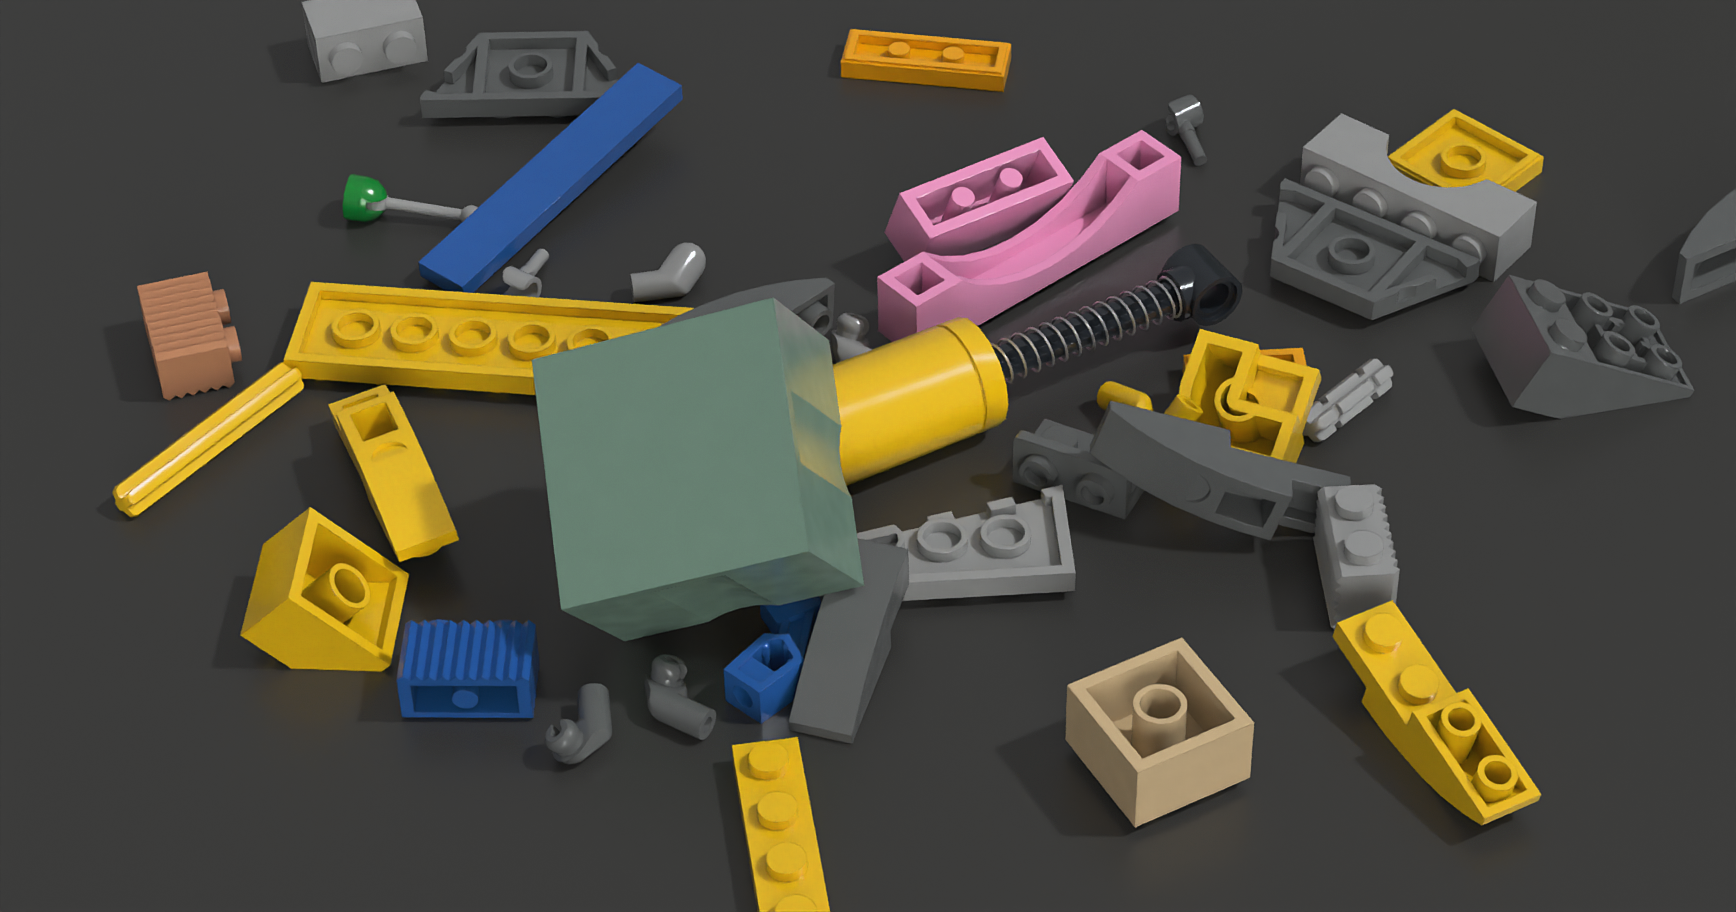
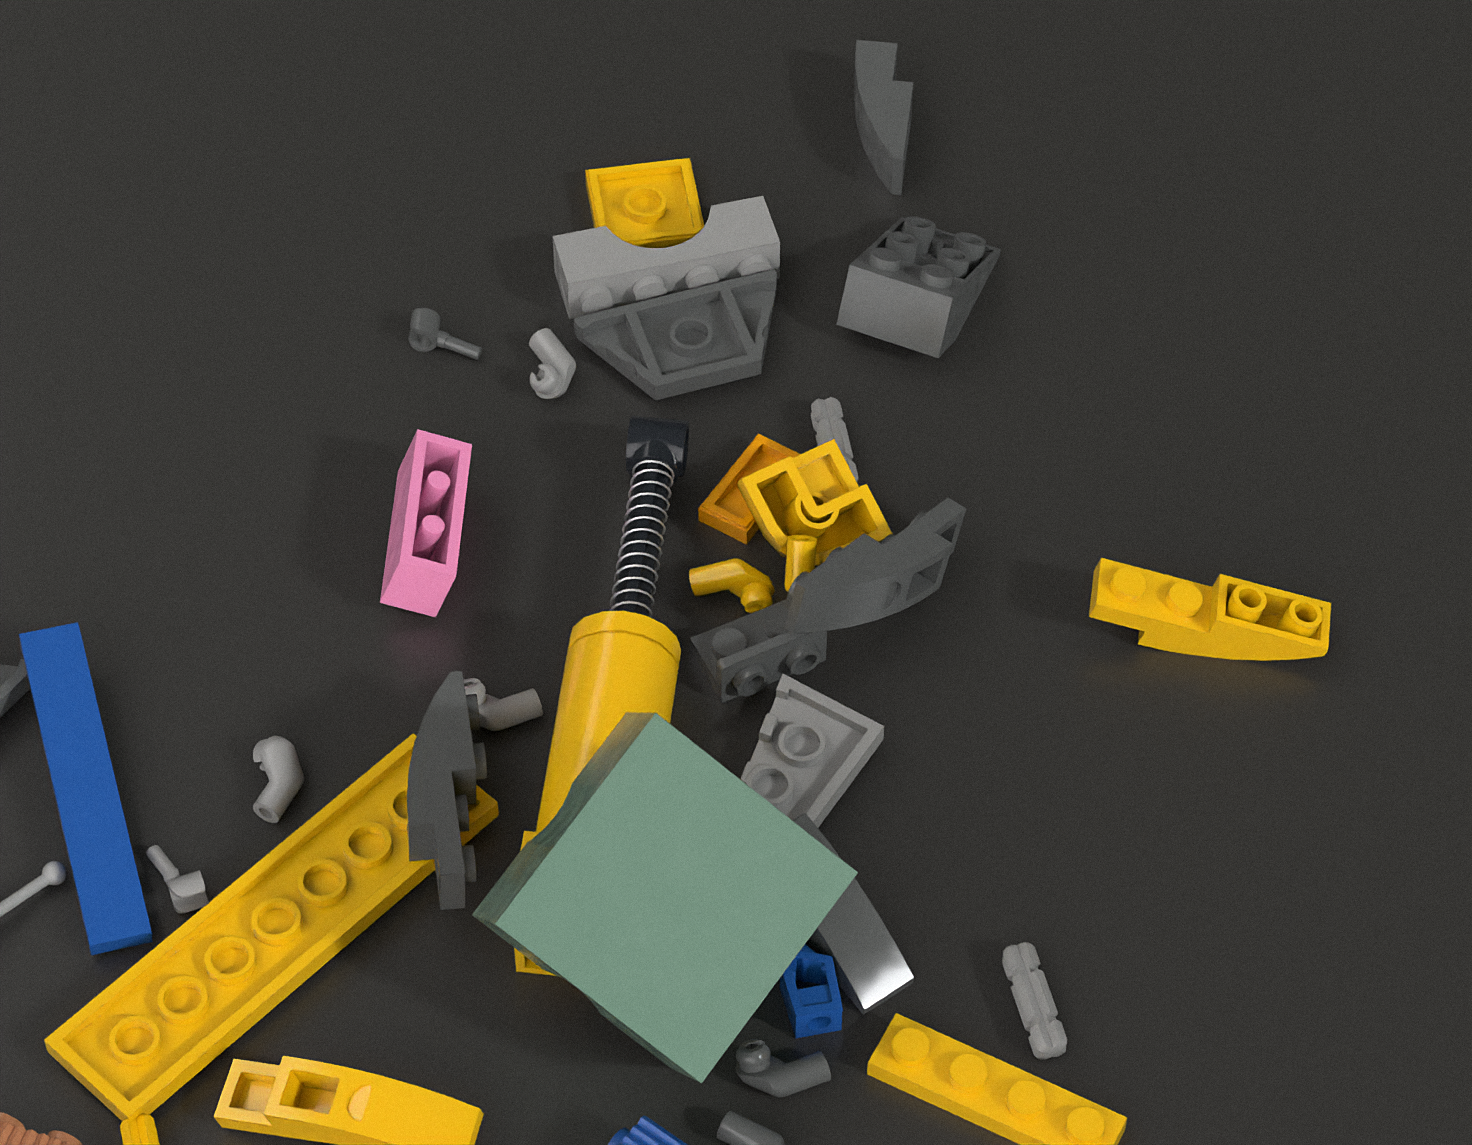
camera: 55 degrees left, 10 degrees up
(901, 822) = (1034, 1001): none -> light grey axle
(926, 60) = (179, 443): light orange tile -> none
(1112, 202) = (502, 522): bright pink arch -> none
(1159, 731) = (1100, 781): tan brick -> none
(1239, 204) = (557, 365): none -> light grey arm
(1354, 550) = (1015, 549): light grey brick -> none

